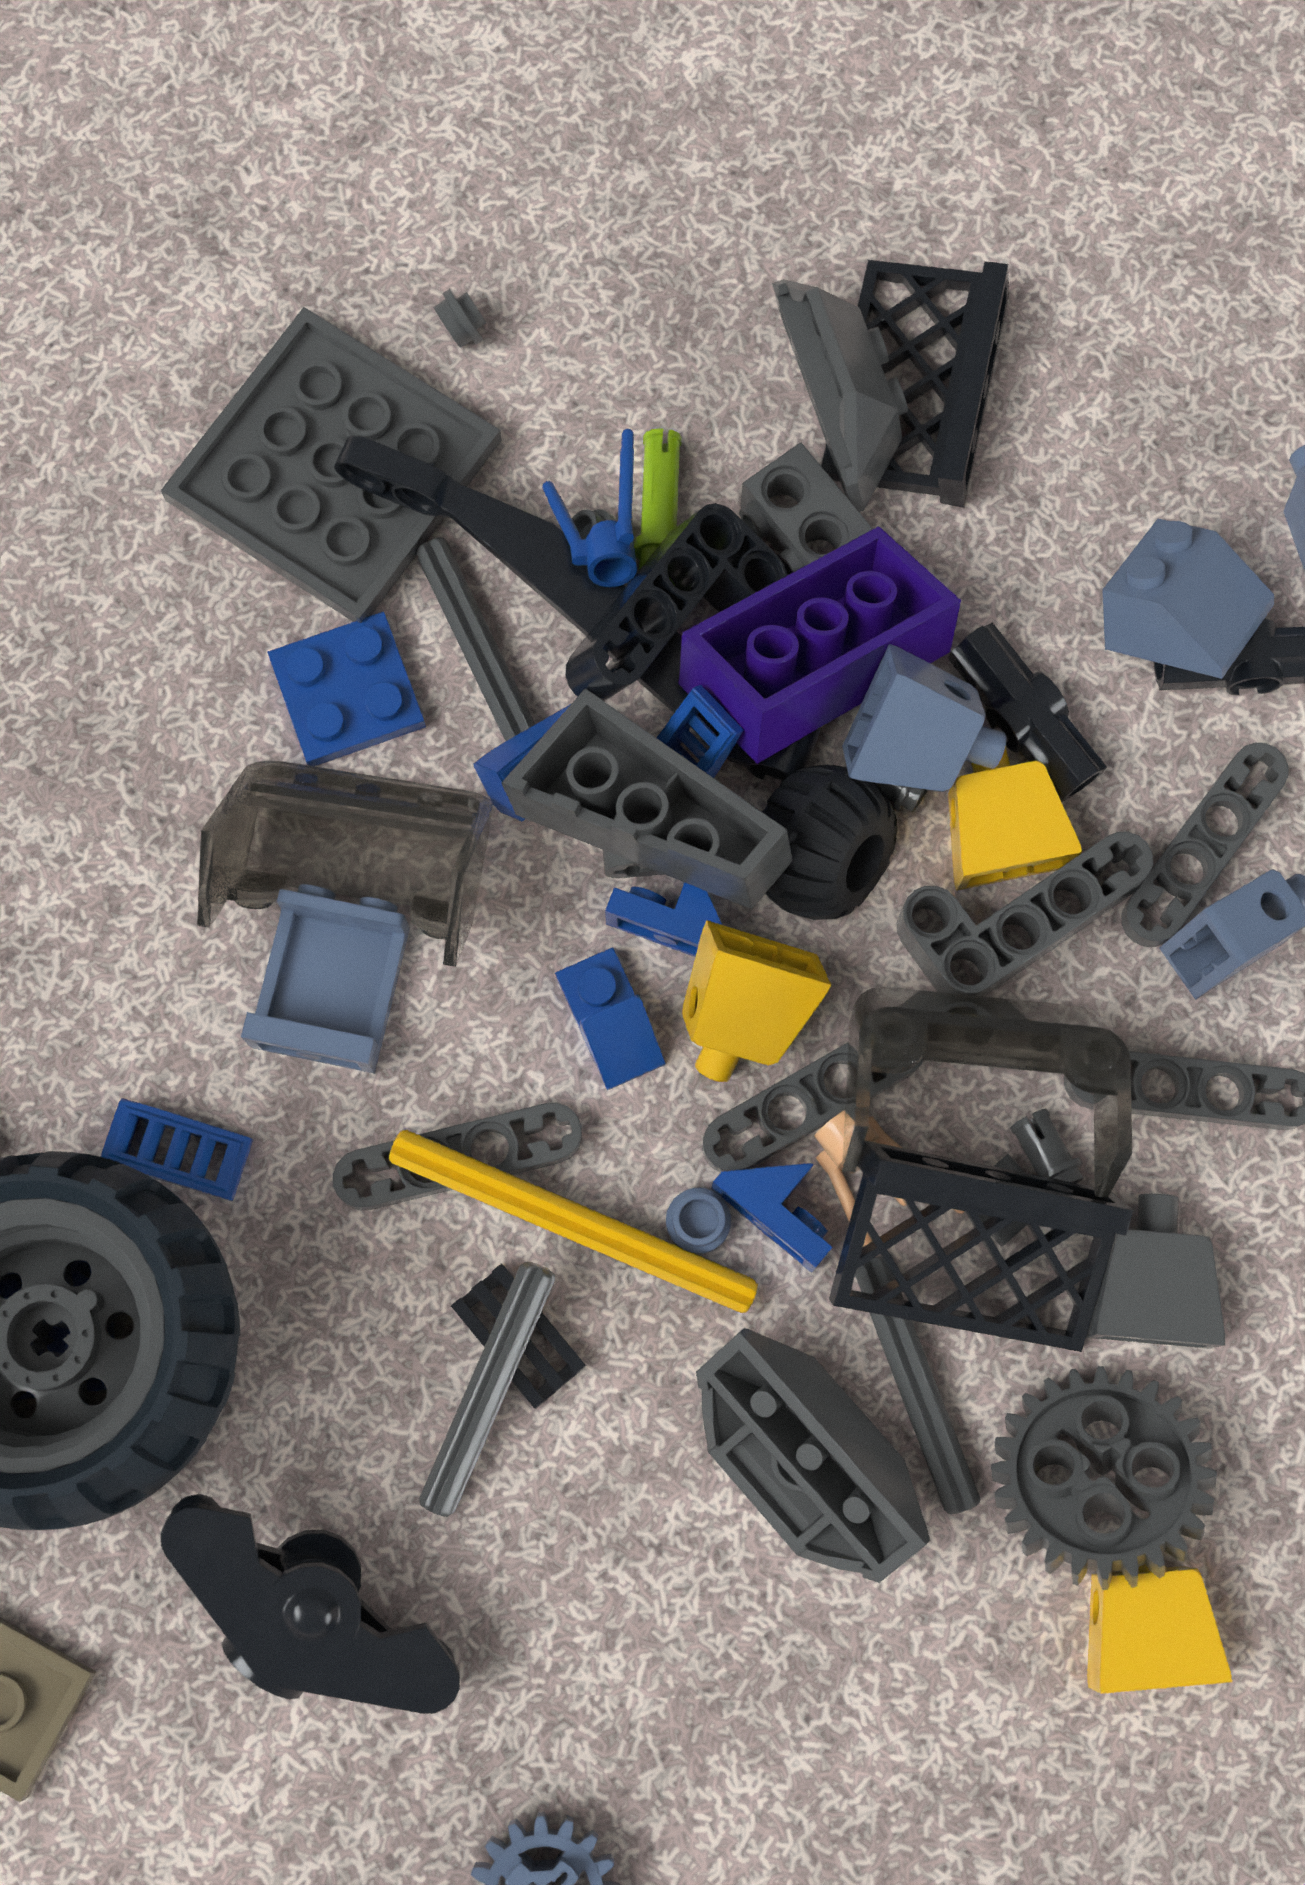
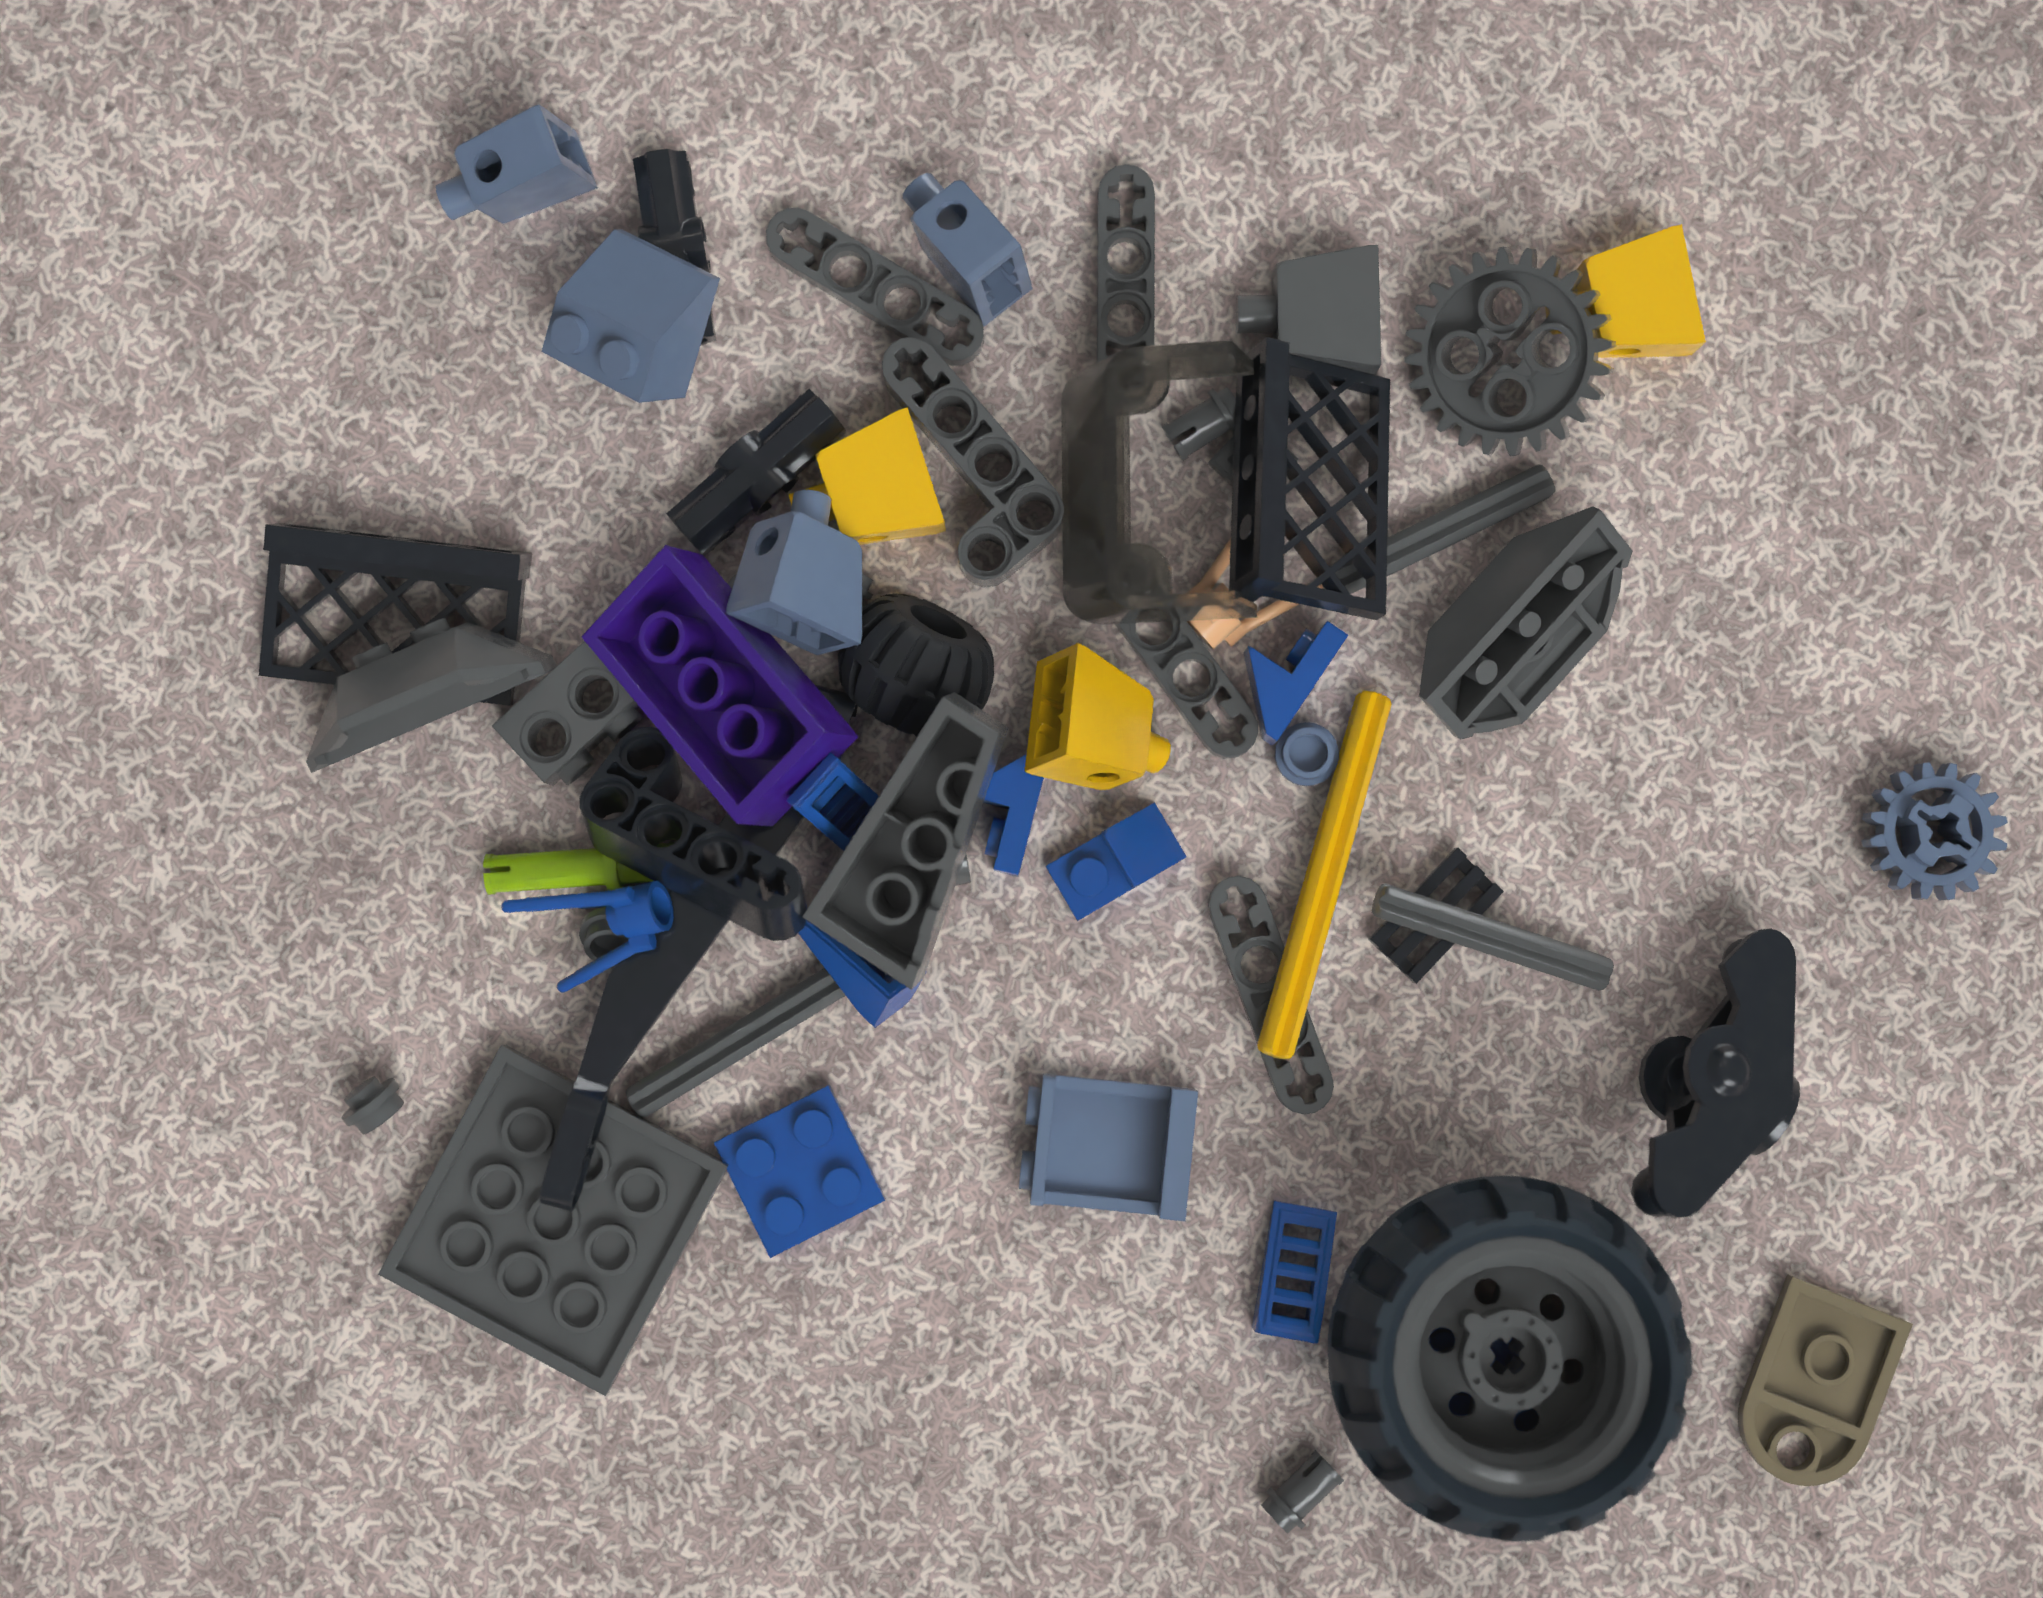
camera: 95 degrees left, 10 degrees up
(349, 836) = (958, 1140): clear smoke windscreen -> none

